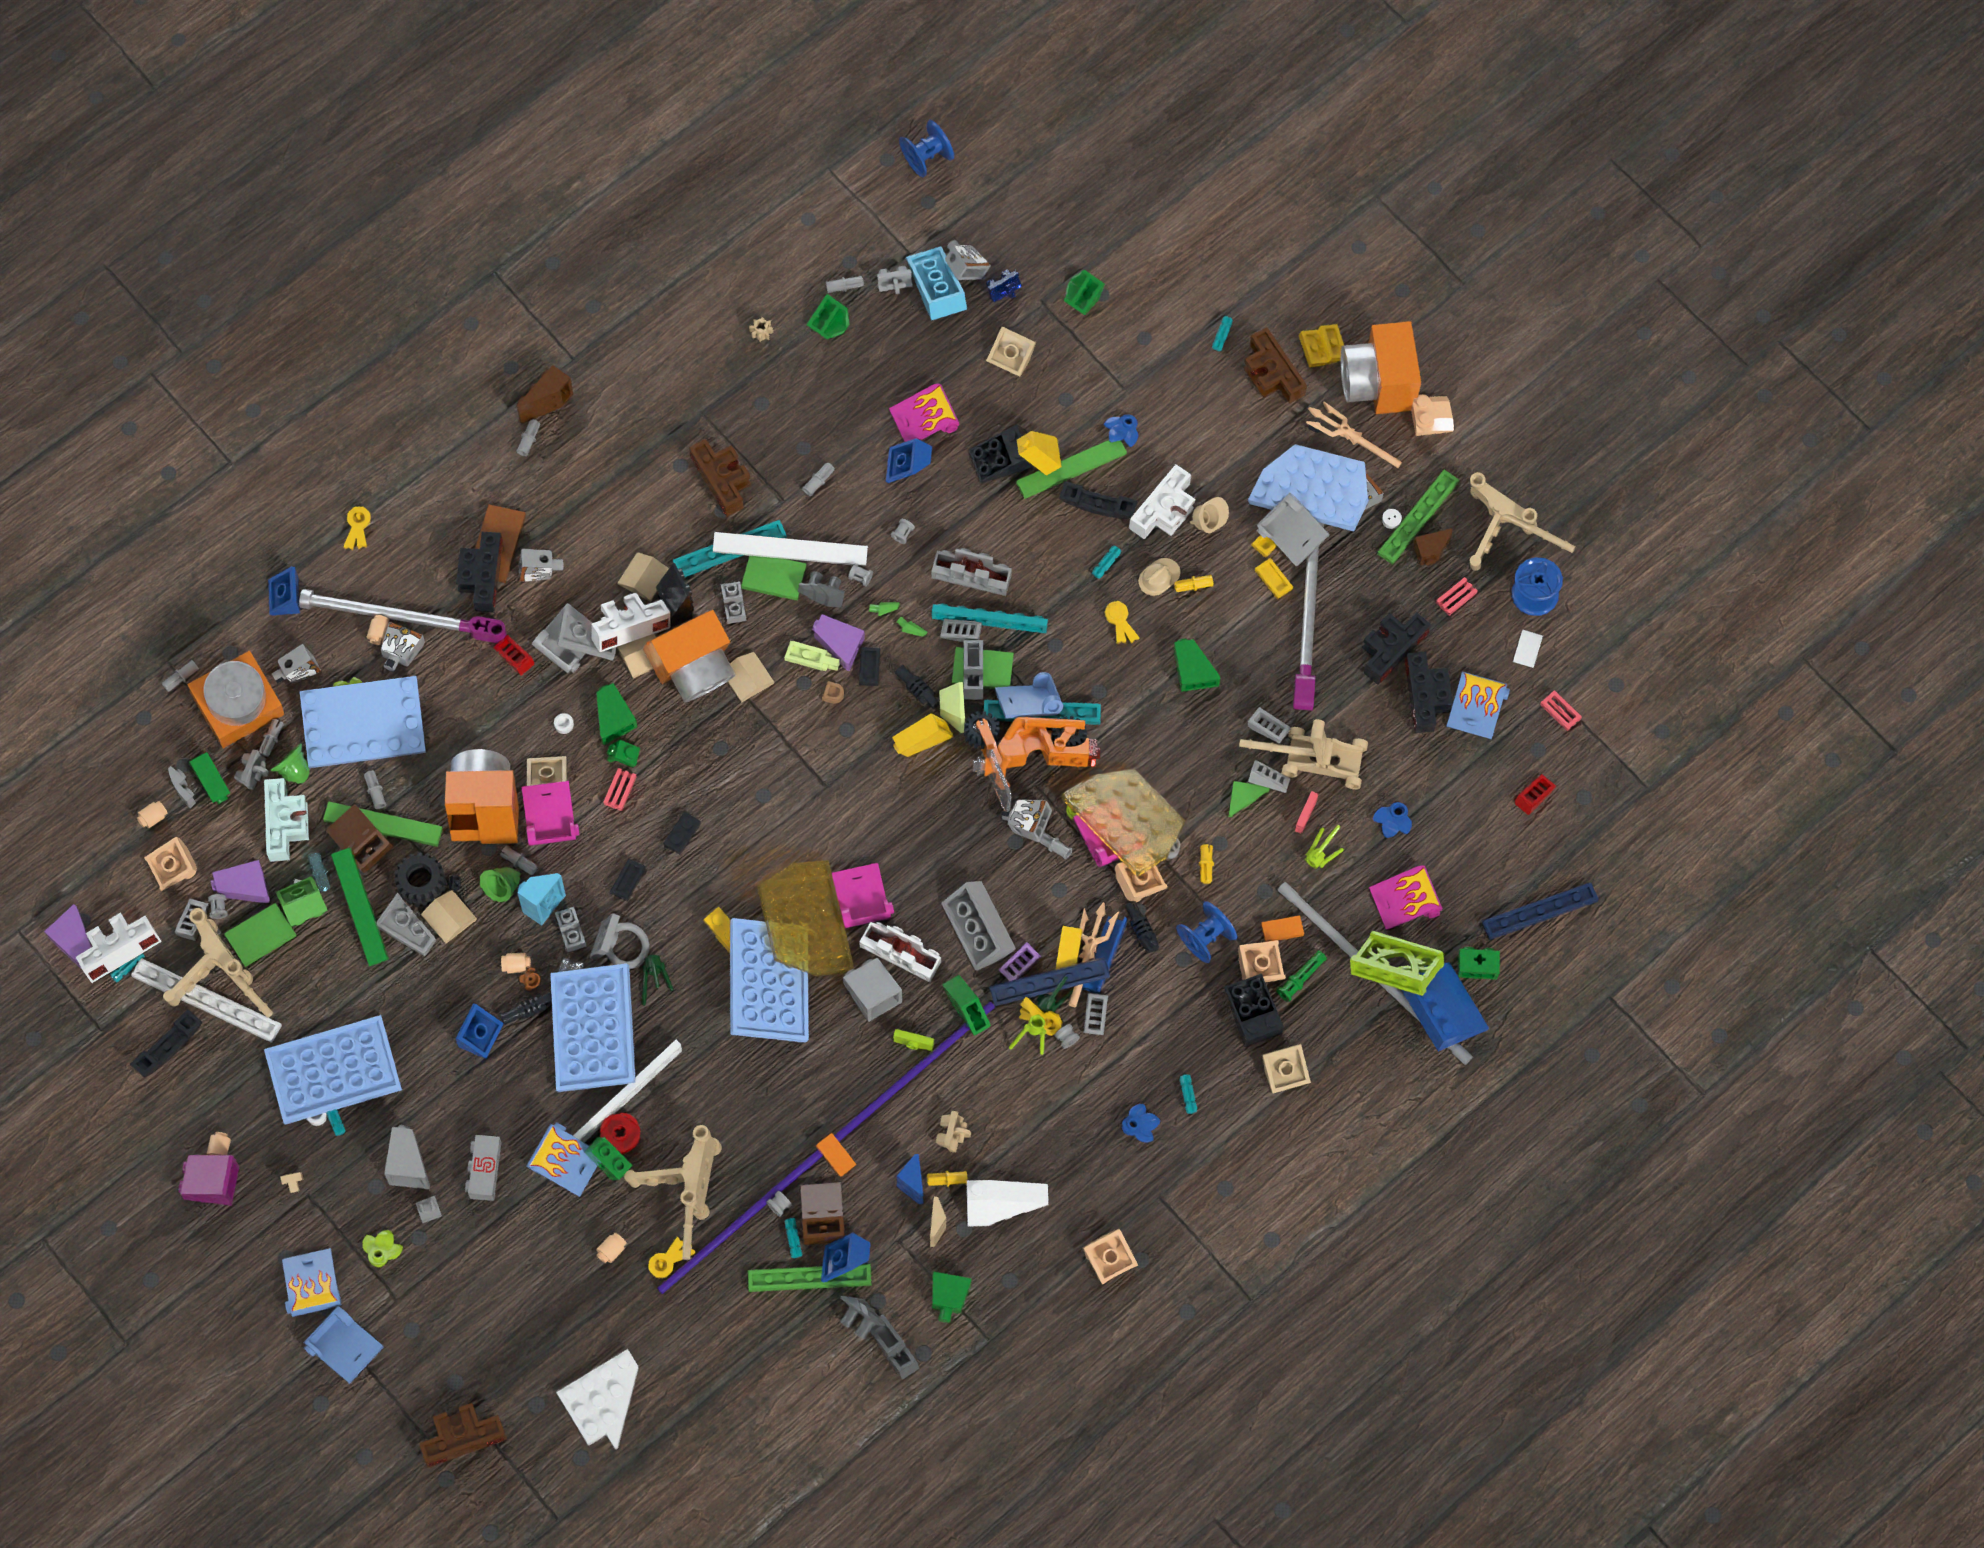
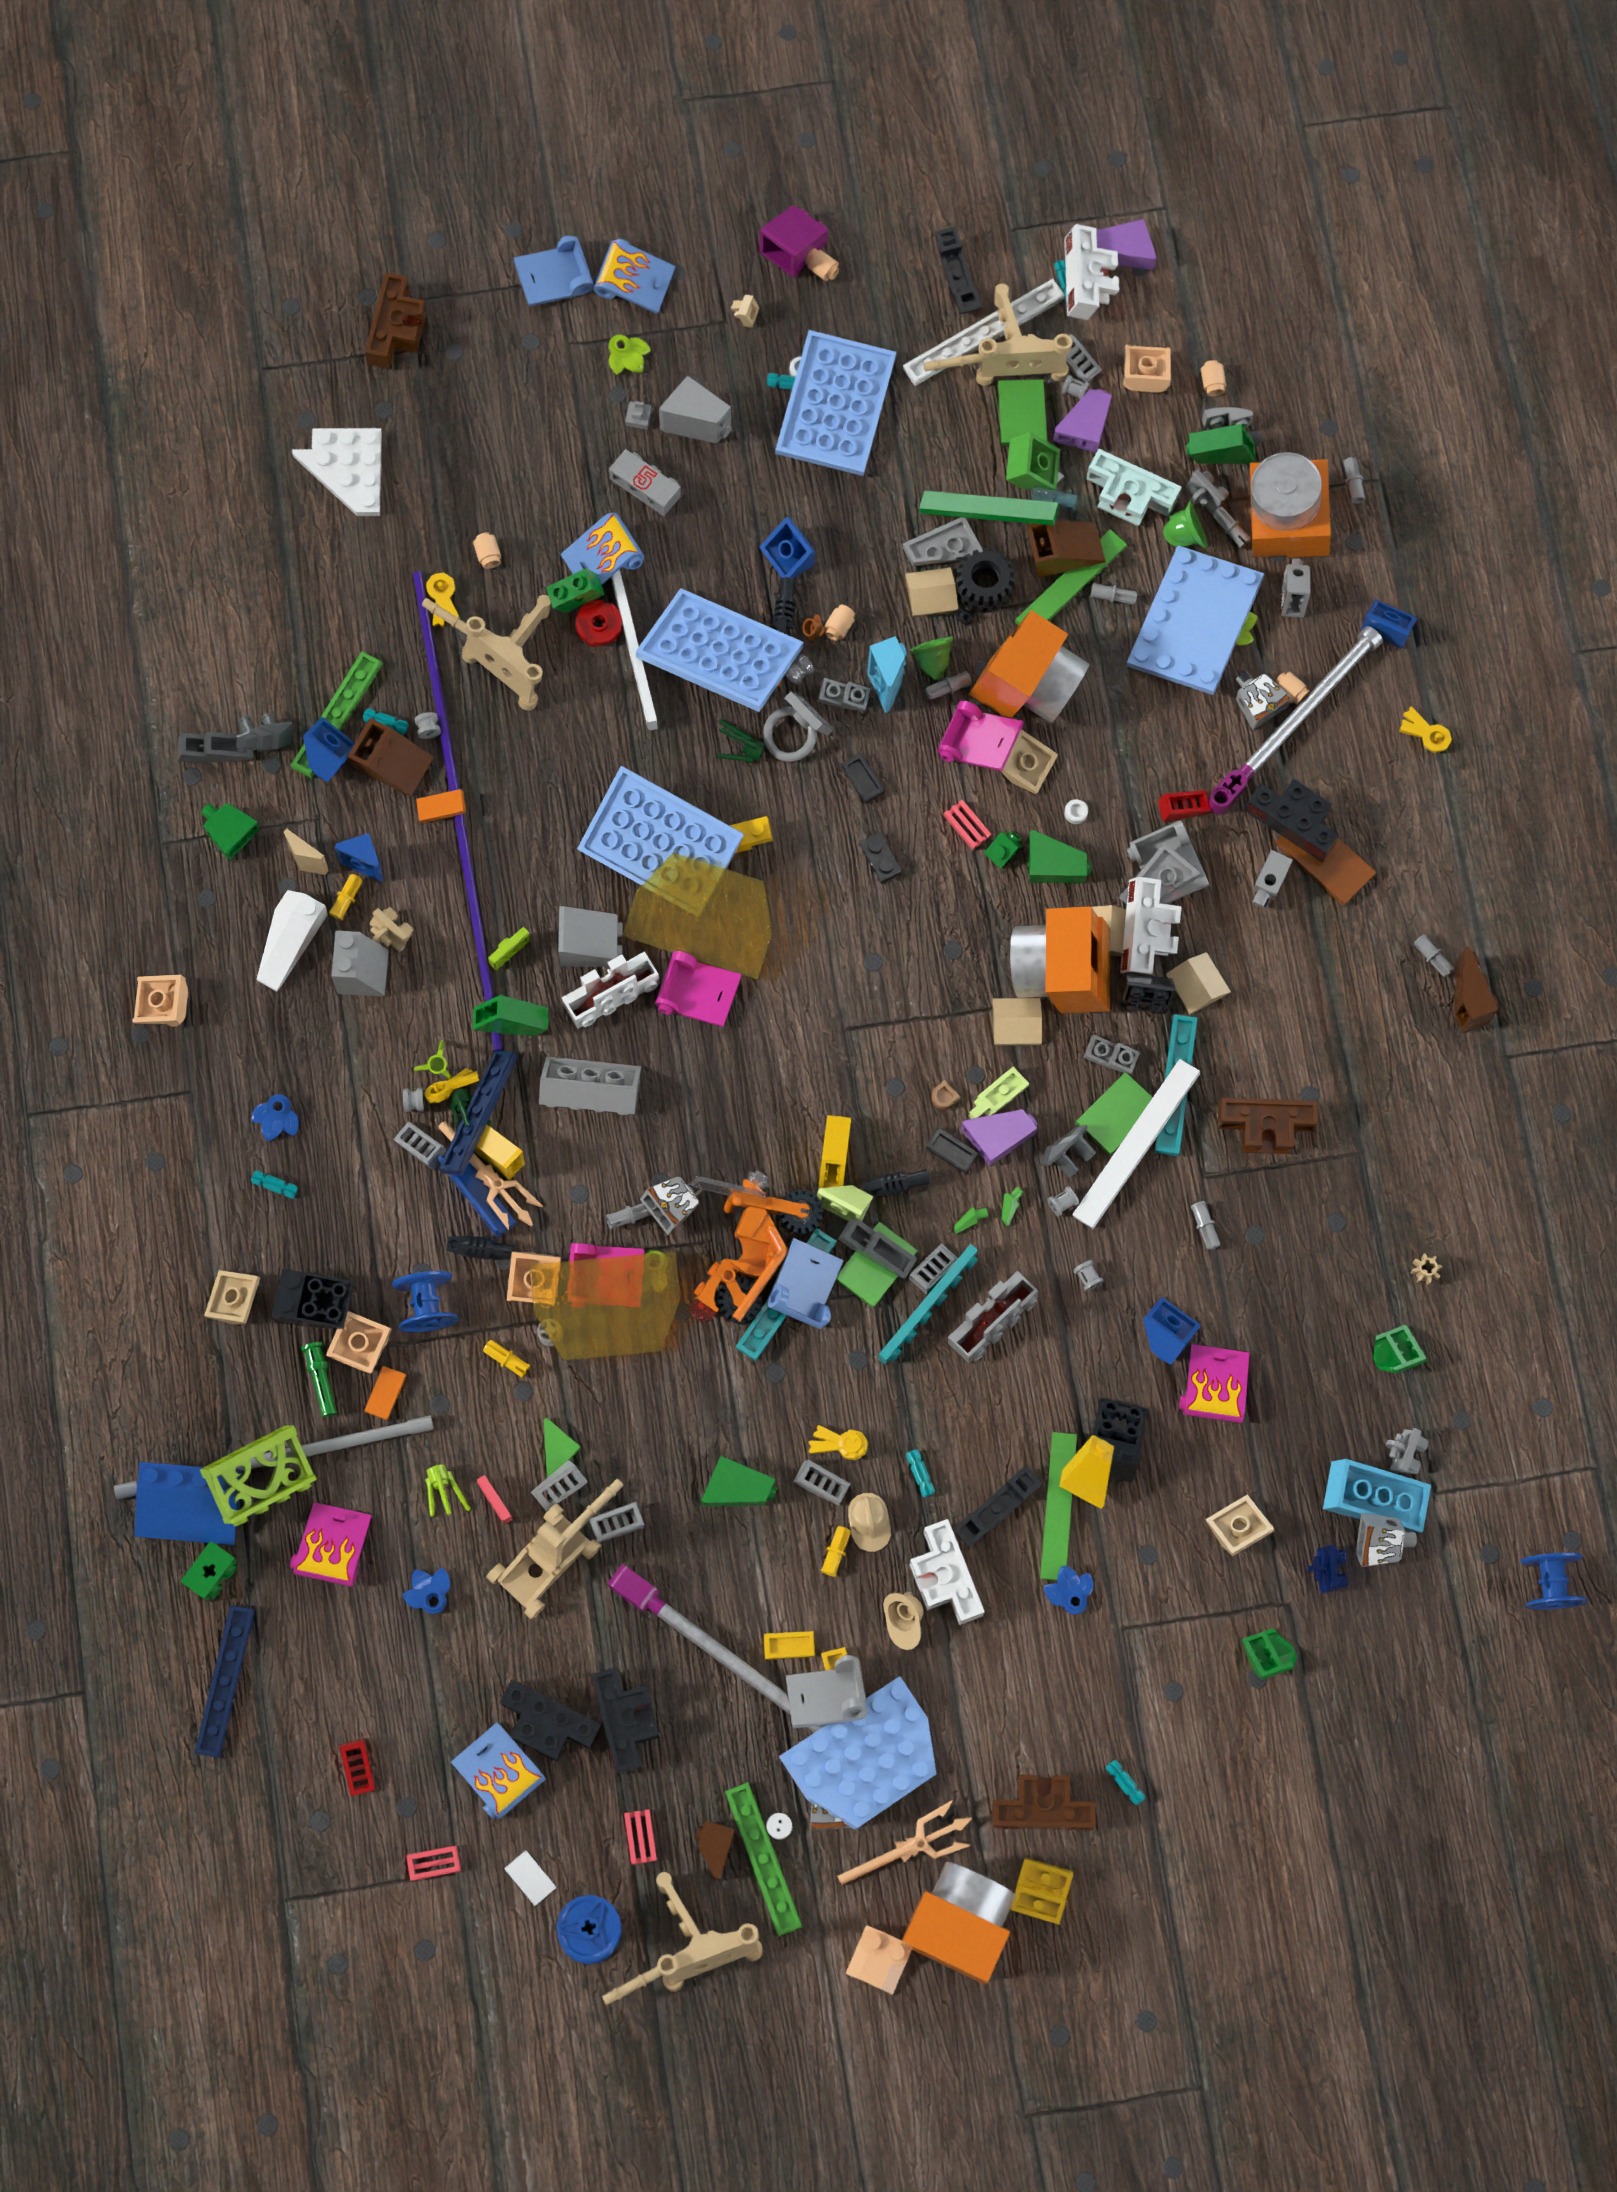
camera: 120 degrees right, 5 degrees up
(843, 284) = (1433, 1394): light grey axle -> none
(996, 1133) = (359, 965): none -> light grey slope
(1030, 963) = (527, 1119): medium lavender slope -> none
(1154, 631) = (809, 1485): none -> light grey slope

